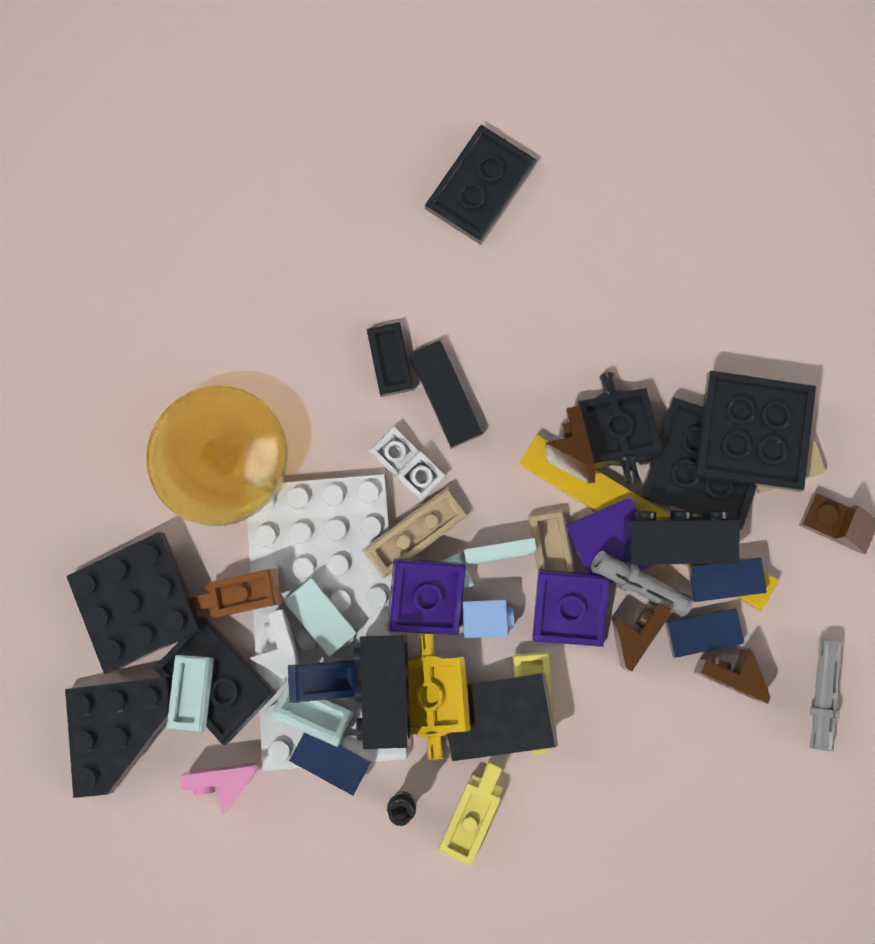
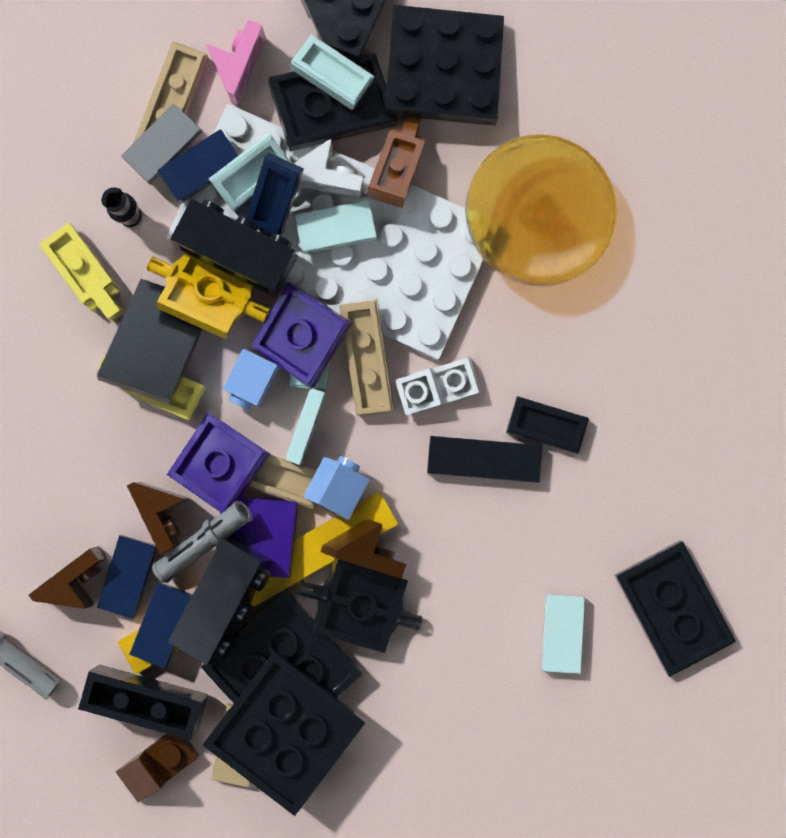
camera: 115 degrees right, 5 degrees up
(285, 823) = (175, 83): none -> tan tile
(327, 807) = (161, 143): none -> light grey tile
(534, 498) = (337, 486): none -> light blue brick
(550, 259) = (562, 633): none -> light aqua tile
(797, 559) = (143, 701): none -> black brick

